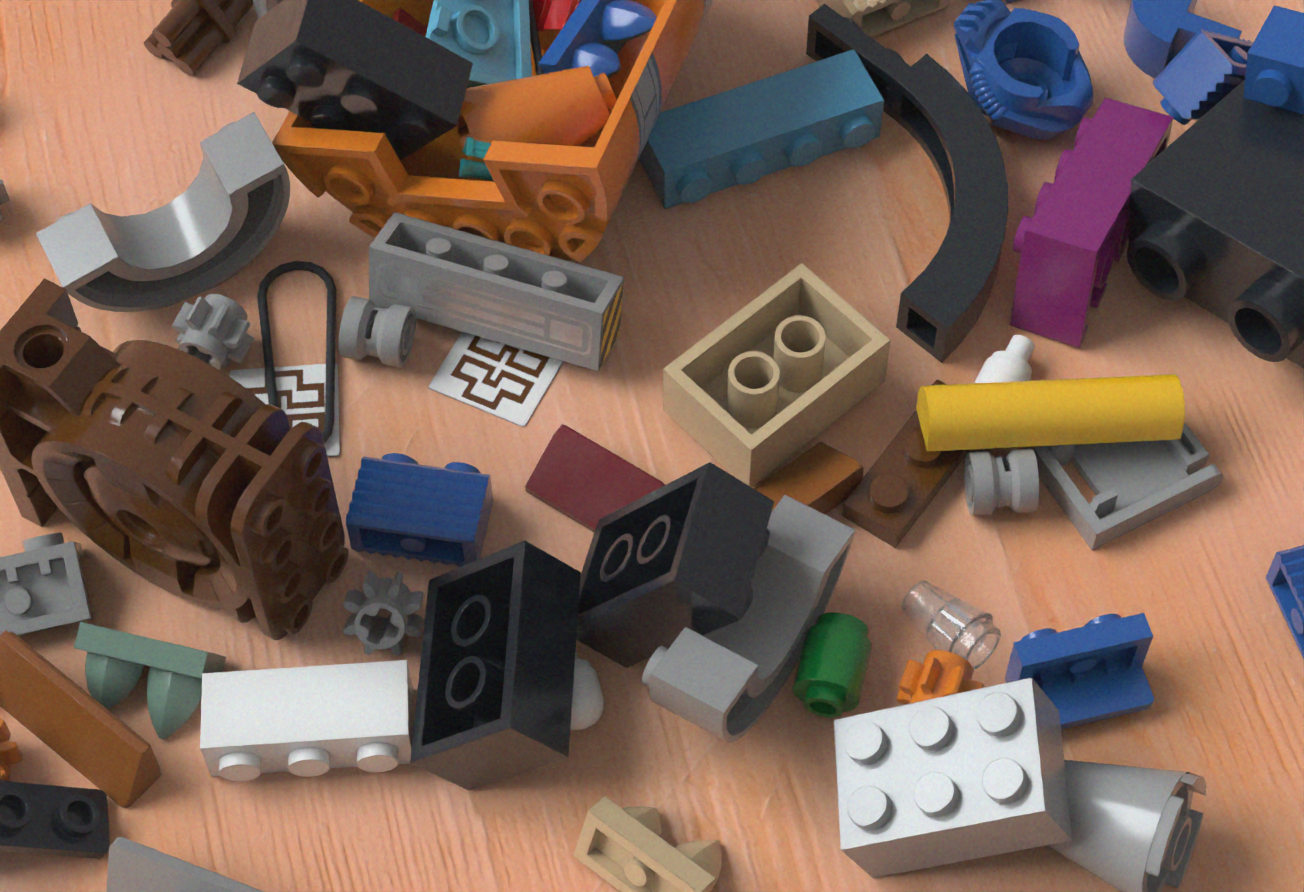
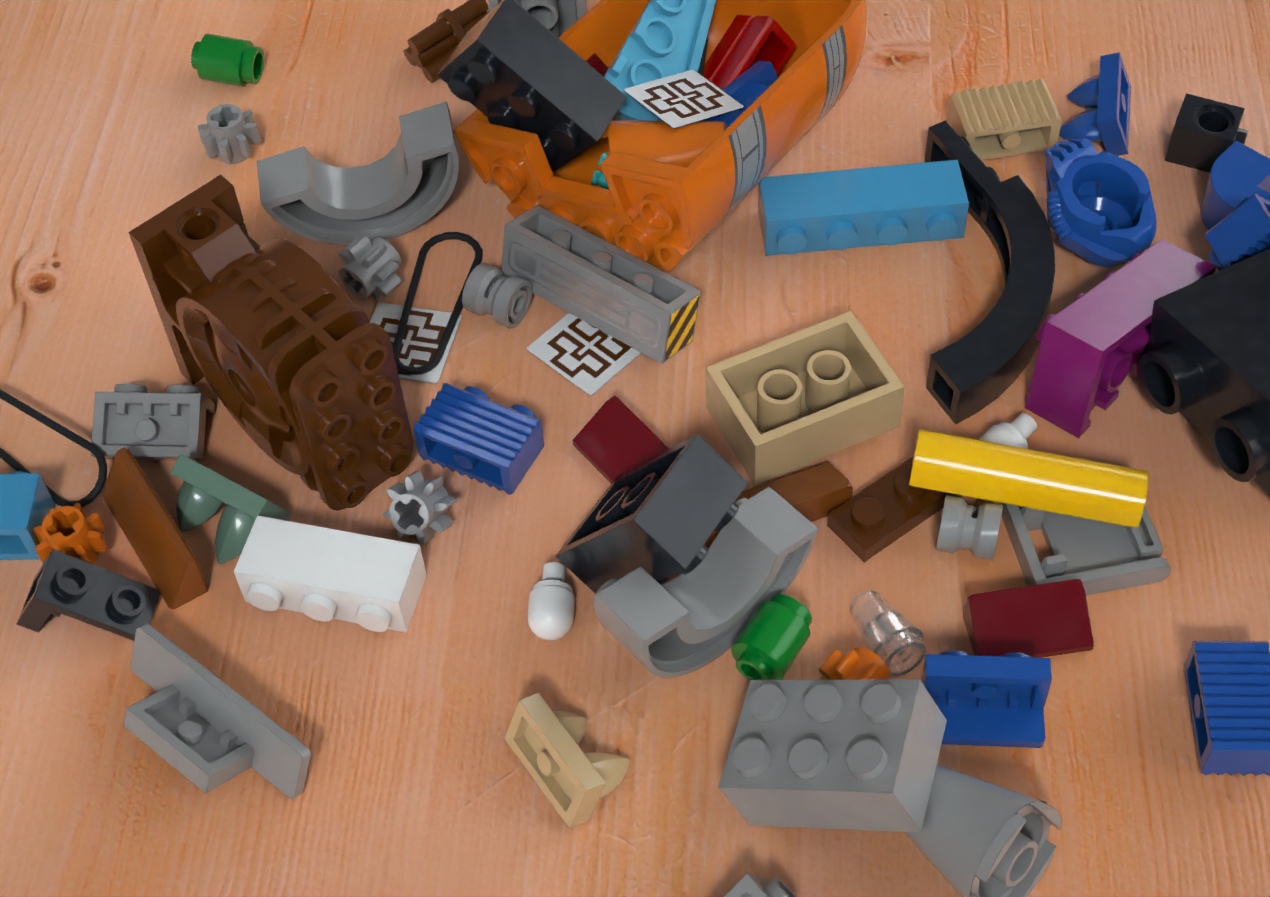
camera: 20 degrees right, 5 degrees down
(497, 667) = (488, 568): black brick -> none
(529, 46) = (683, 98): none -> white sticker
(1095, 573) = (1030, 620): none -> dark red slope

